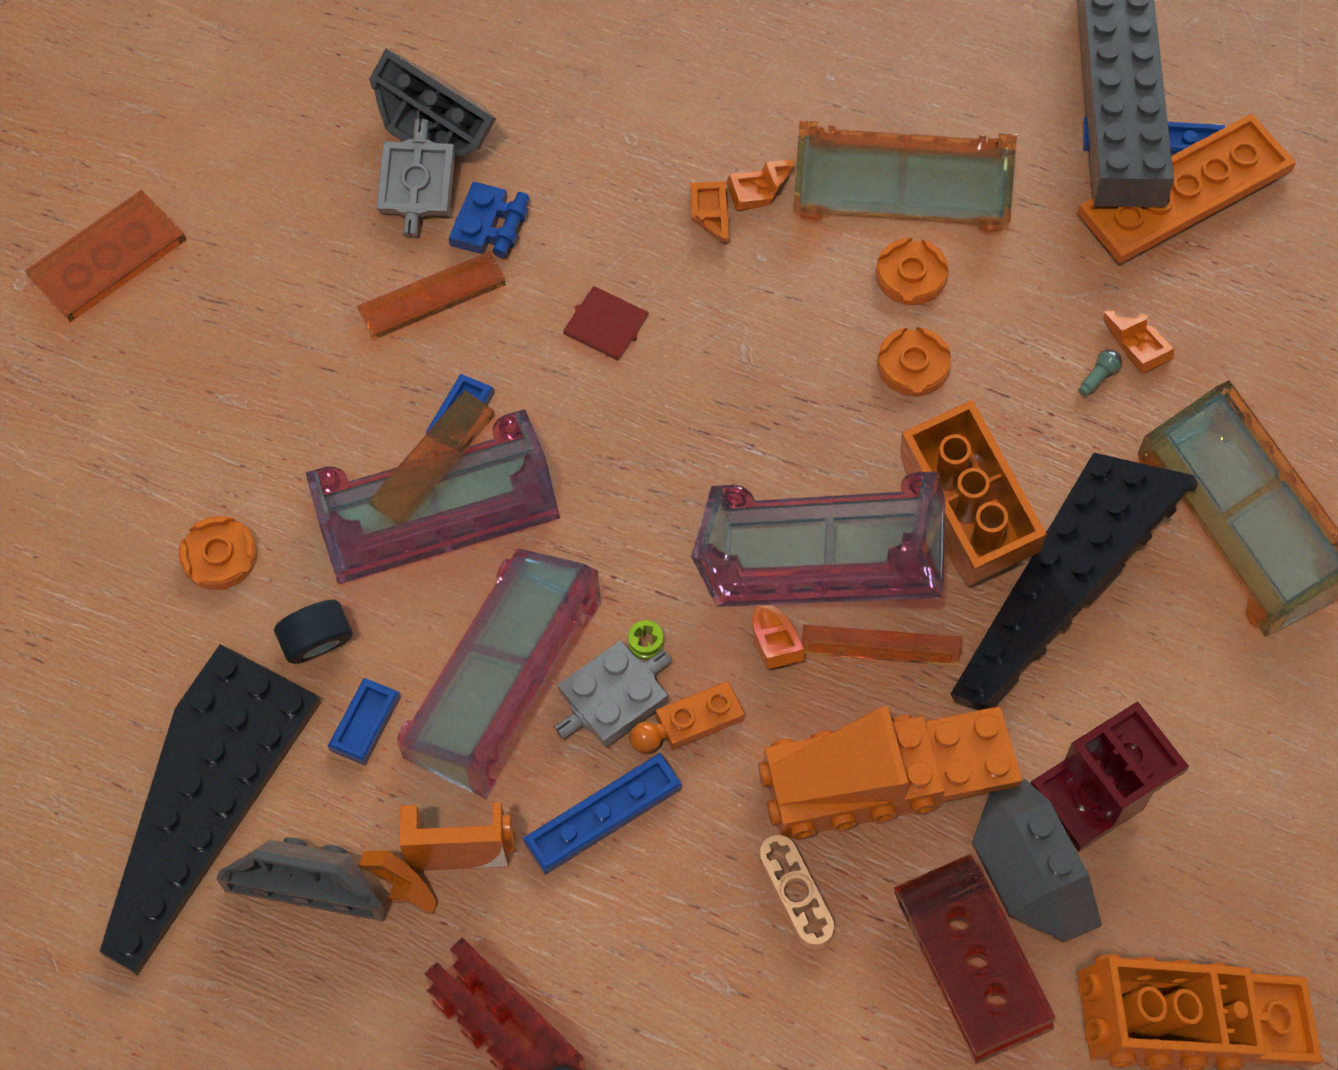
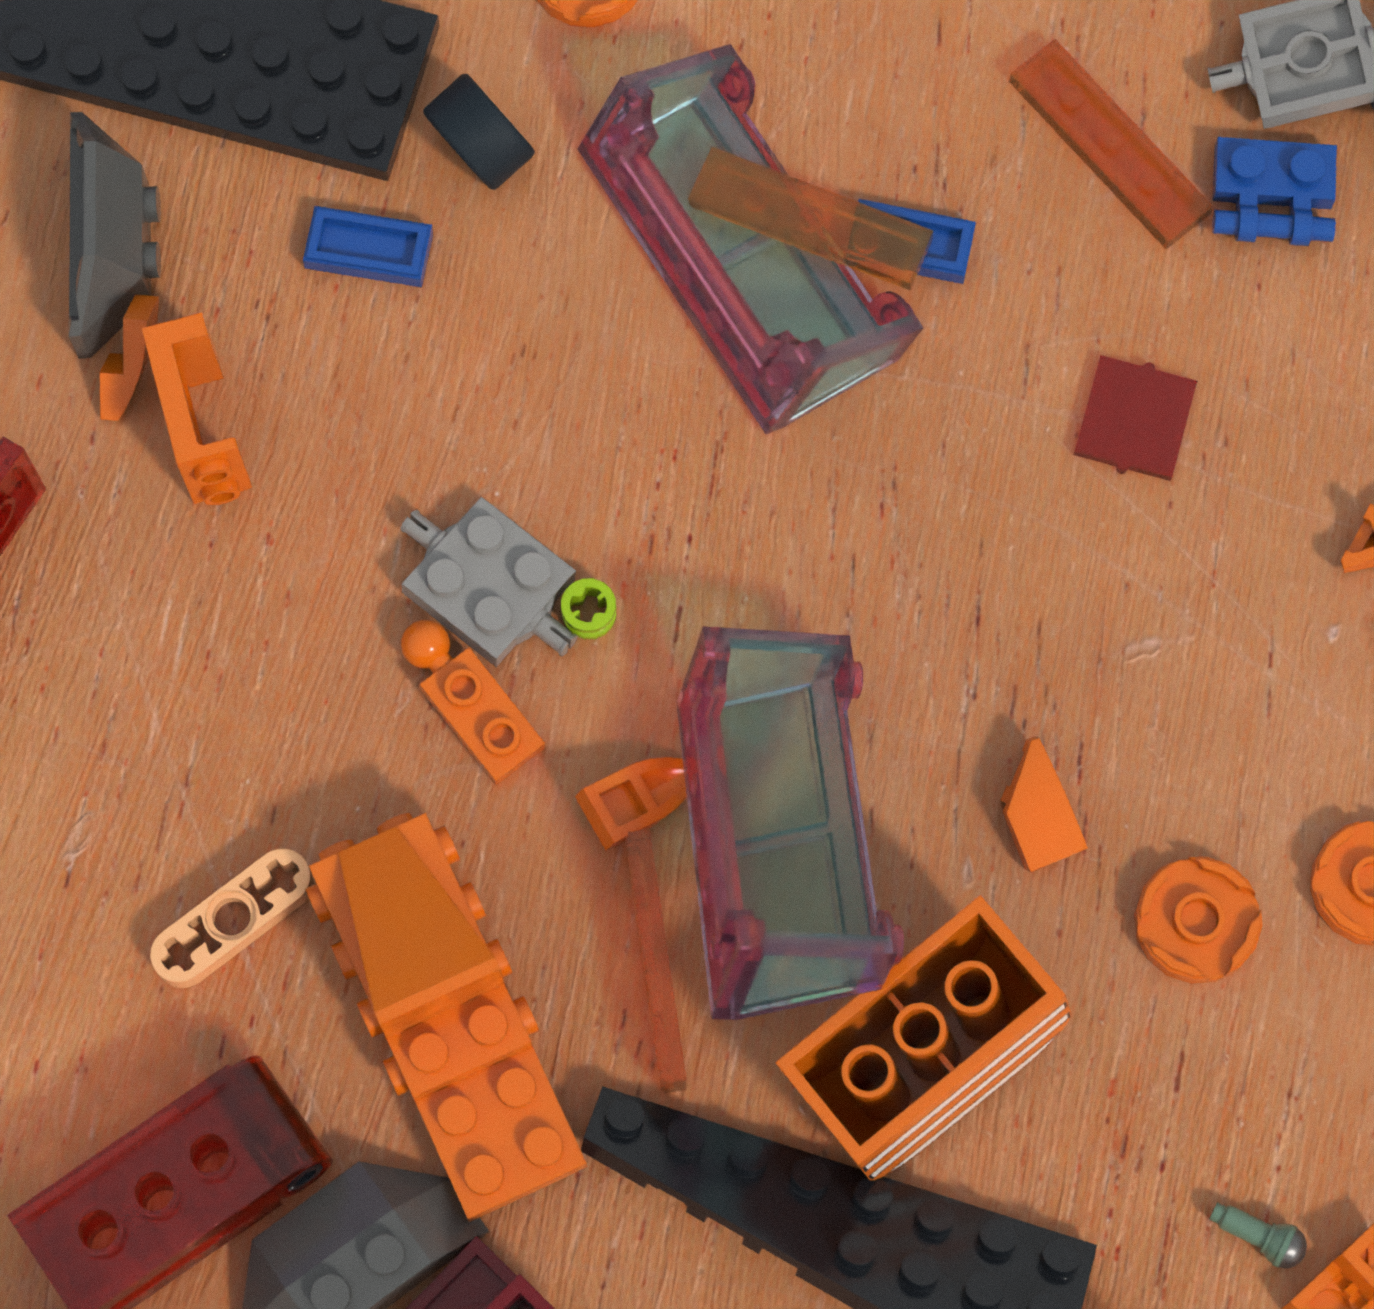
camera: 75 degrees right, 10 degrees up
(499, 668) = (479, 404): windscreen -> none
(602, 813) = (298, 614): blue tile -> none
(833, 422) = (1040, 811): none -> orange slope

